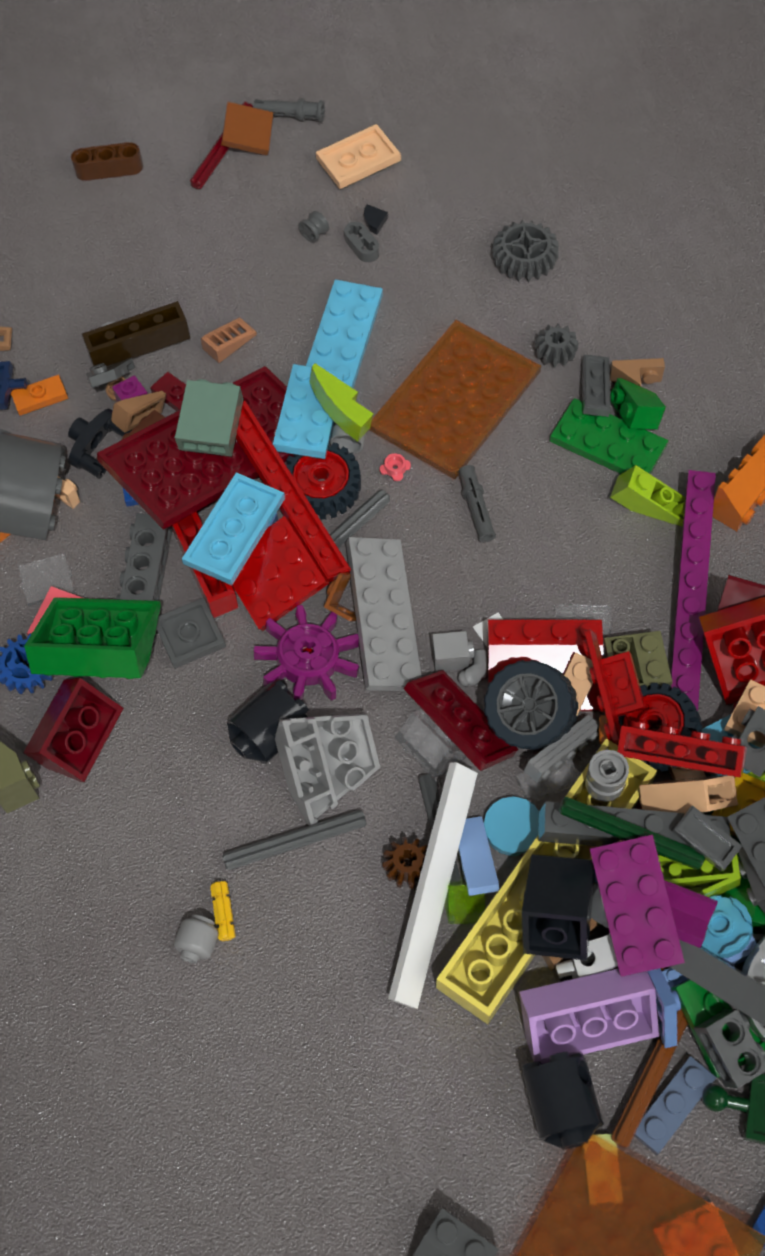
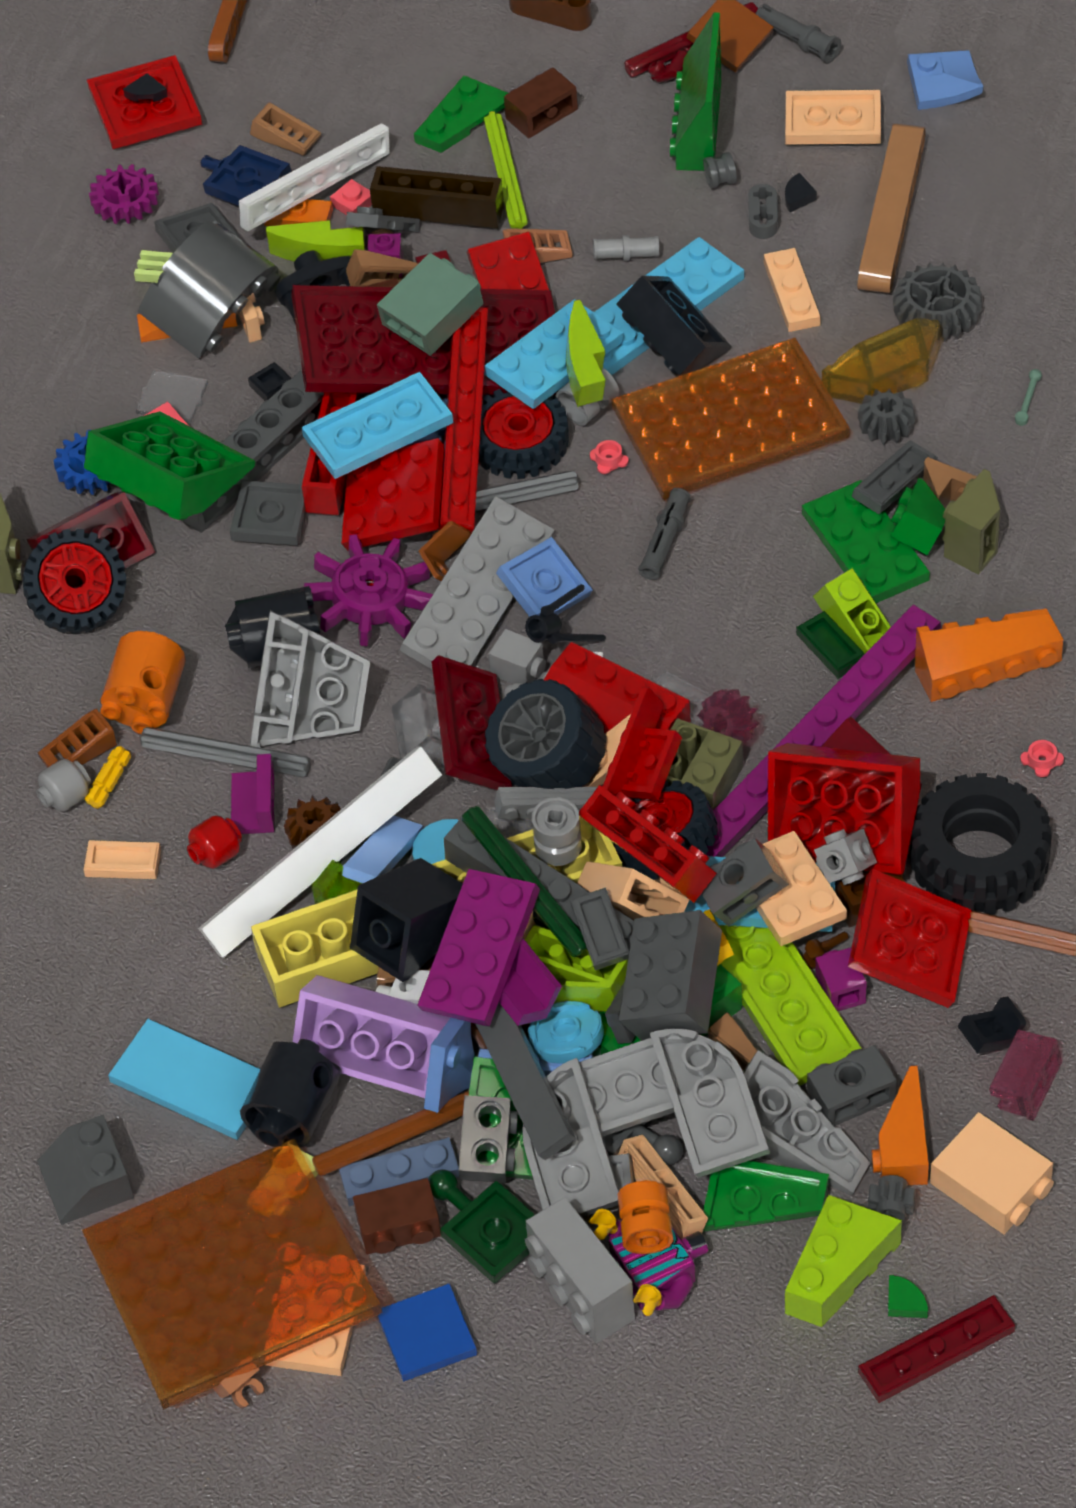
camera: 35 degrees right, 10 degrees down
(37, 364) = (314, 177): none -> white tile
(64, 411) = (295, 239): none -> lime slope
(66, 772) = (81, 556): none -> wheel
(71, 365) = (350, 196): none -> coral plate
(101, 267) = (459, 113): none -> green wing
(113, 532) = (268, 381): none -> black tile
(154, 234) = (540, 102): none -> copper brick
(164, 293) = (505, 169): none -> lime axle
(180, 871) = (80, 730): none -> dark orange slope
(199, 820) = (142, 680): none -> orange cylinder
(225, 173) = (668, 72): none -> dark red arm
(225, 361) = (508, 264): none -> red plate
(269, 180) = (698, 101): none -> green slope
(282, 972) = (122, 859): none -> light nougat tile
(291, 310) = (626, 247): none -> light grey pin
(344, 865) = (254, 798): none -> magenta panel
(345, 919) = (214, 841): none -> red head
(372, 351) = (672, 324): none -> black slope
(407, 99) = (943, 78): none -> medium blue plate
(422, 287) = (791, 290): none -> light nougat plate
(428, 583) = (542, 577): none -> medium blue plate
(446, 201) = (891, 208): none -> medium nougat beam
(461, 616) = (548, 624): none -> black plant
(469, 1124) = (186, 1077): none -> medium azure tile
(530, 311) = (891, 359): none -> clear yellow wedge
(632, 616) = (729, 714): none -> clear pink gear
(636, 303) = (1021, 417): none -> sand green hinge
(644, 525) = (829, 644): none -> dark green tile
(680, 391) = (973, 524): none -> olive slope
(707, 1147) = (397, 1216): none -> copper brick

